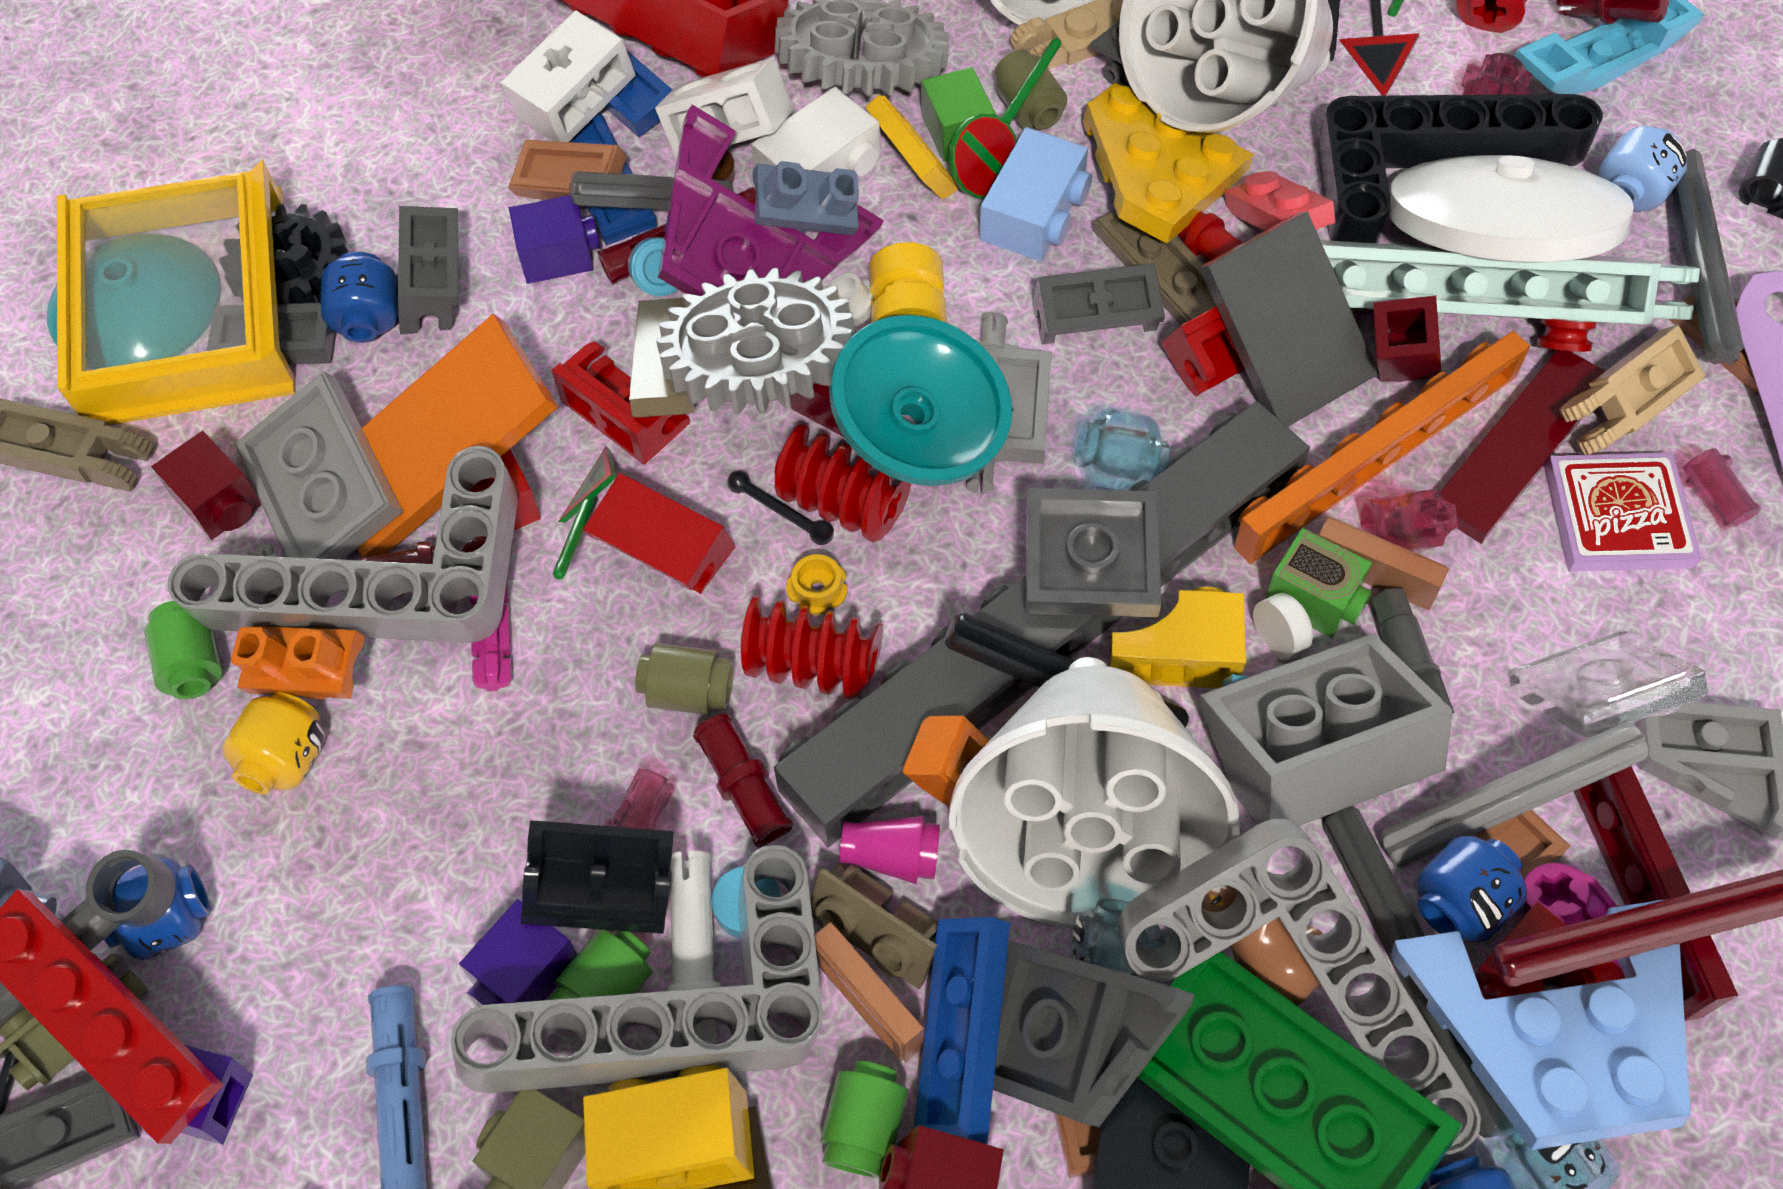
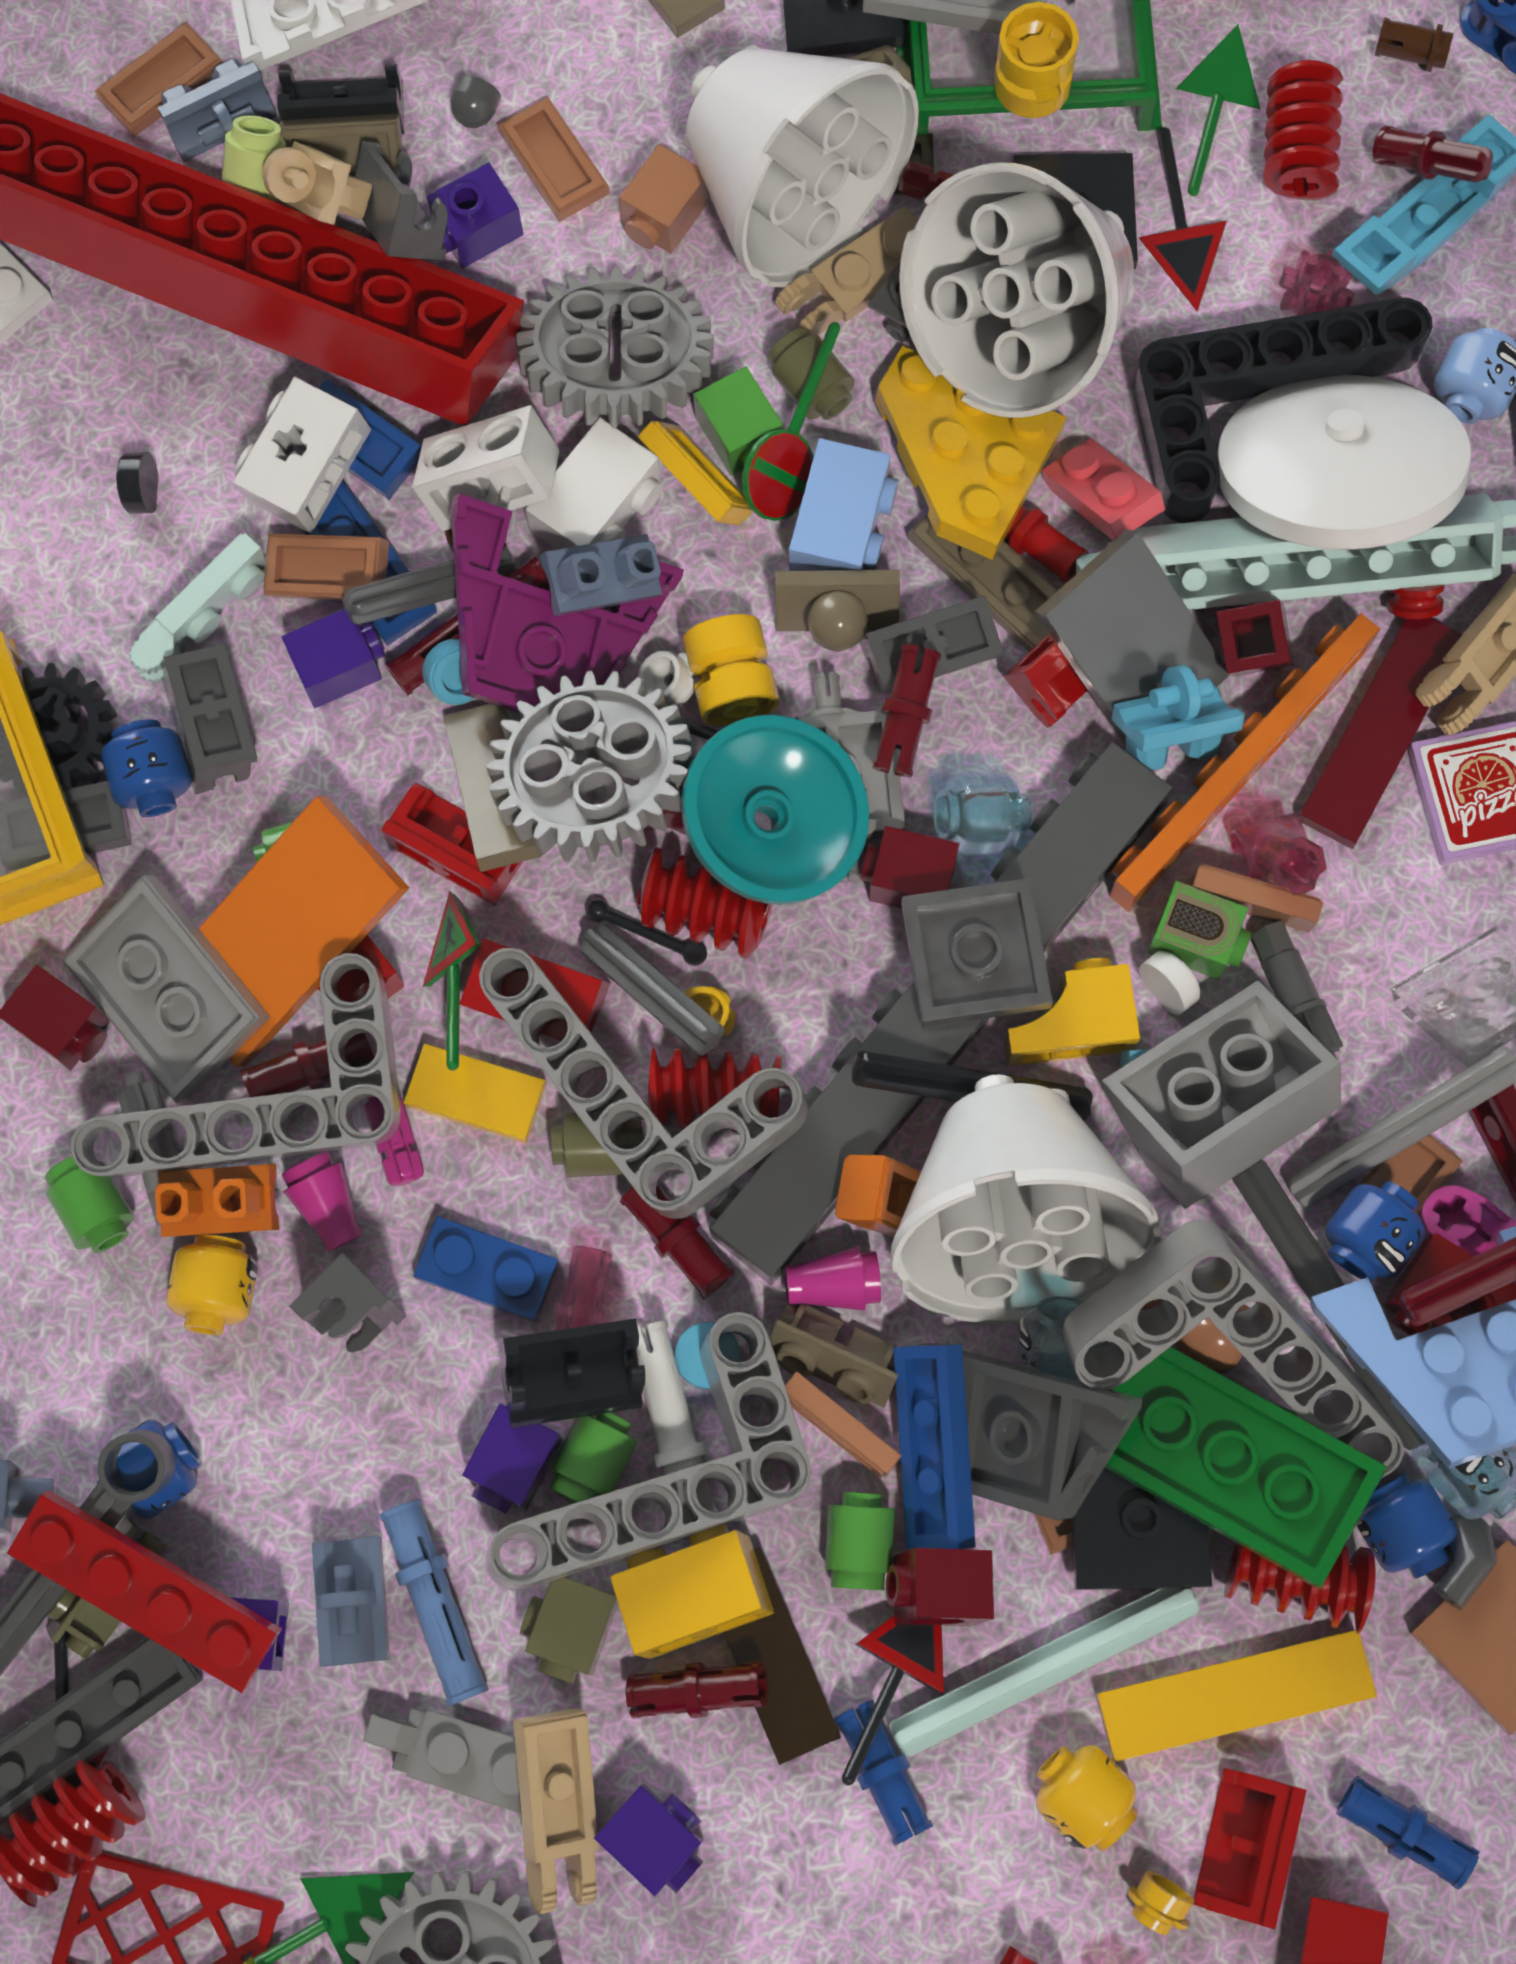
camera: 10 degrees left, 15 degrees up
(308, 1078) = (350, 1601): none -> sand blue hips
(387, 767) = (344, 1299): none -> dark grey hinge
(405, 683) = (323, 1199): none -> dark pink cone
(426, 89) = (137, 482): none -> black tile
(449, 181) = (195, 610): none -> light aqua hinge
(545, 777) = (486, 1269): none -> blue plate
(580, 619) = (475, 1094): none -> yellow tile
(707, 628) = (621, 1102): none -> light grey beam
(771, 548) = (651, 989): none -> dark grey axle
(1013, 258) = (837, 604): none -> dark tan tile
(1037, 467) = (908, 865): none -> dark red brick
(1063, 344) = (906, 710): none -> dark red pin
(1325, 382) = (1180, 714): none -> medium azure hips

